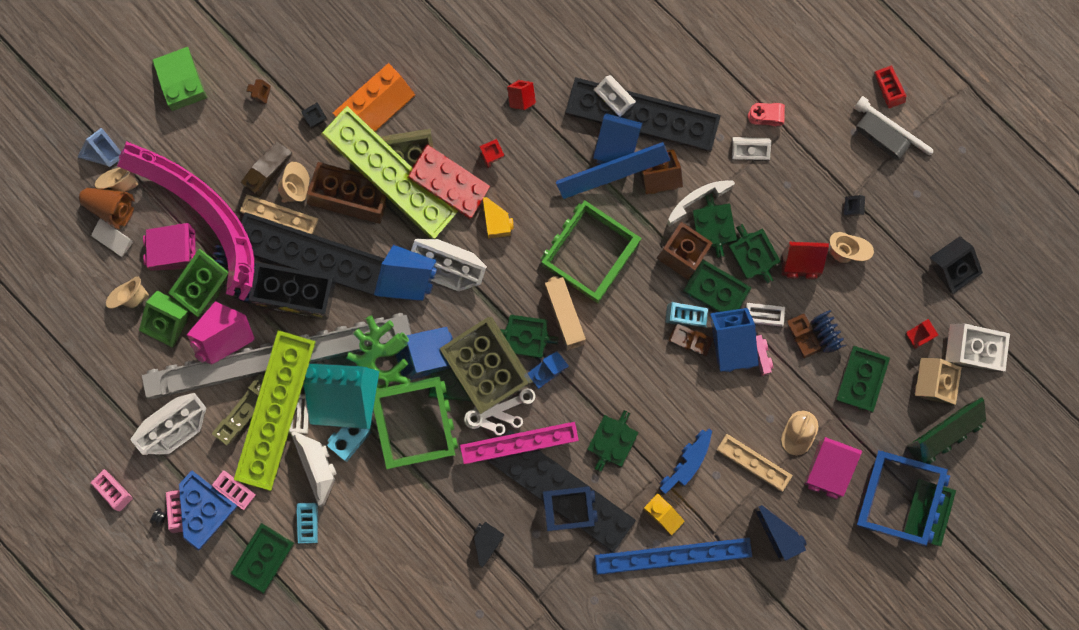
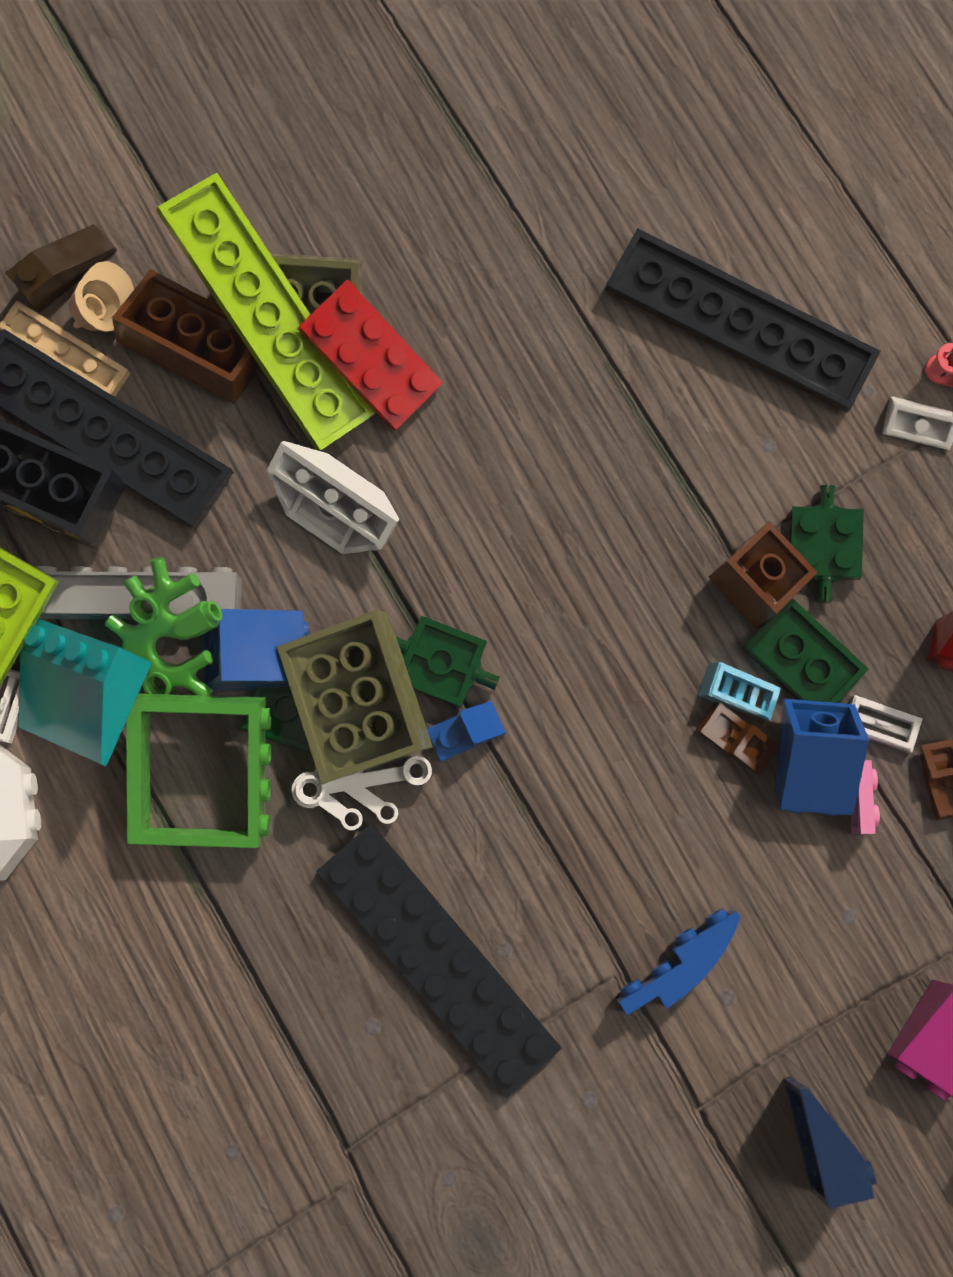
camera: 15 degrees right, 0 degrees up
(259, 90) = (86, 130): reddish brown tile -> none
(314, 115) = (166, 187): black plate -> none
(353, 441) = (81, 779): medium azure brick -> none
(379, 98) = (289, 187): orange slope -> none
(405, 275) = (249, 500): blue slope -> none
(486, 541) = (276, 1022): black slope -> none
(491, 152) = (458, 322): red panel -> none
(497, 220) = (439, 444): yellow slope -> none
(519, 443) = (379, 854): dark pink plate -> none
(521, 94) = (536, 238): red panel -> none
(565, 313) = (521, 636): tan slope -> none
(568, 227) = (565, 485): bright green window -> none
(590, 498) = (403, 997): dark blue window -> none
(612, 441) = (552, 889): dark green plate -> none
(613, 170) = (668, 401): blue tile -> none
(614, 95) = (699, 274): white slope -> none
(616, 138) = (687, 351): blue slope -> none
(663, 176) = (750, 426): reddish brown slope -> none
(664, 514) = (615, 1049): yellow slope -> none
(673, 556) = (615, 1132): blue tile -> none
(717, 187) = (846, 477): white slope -> none
(754, 254) = (887, 610): dark green plate -> none
(754, 463) = (804, 993): tan tile -> none
(799, 433) = (899, 956): tan piece -> none

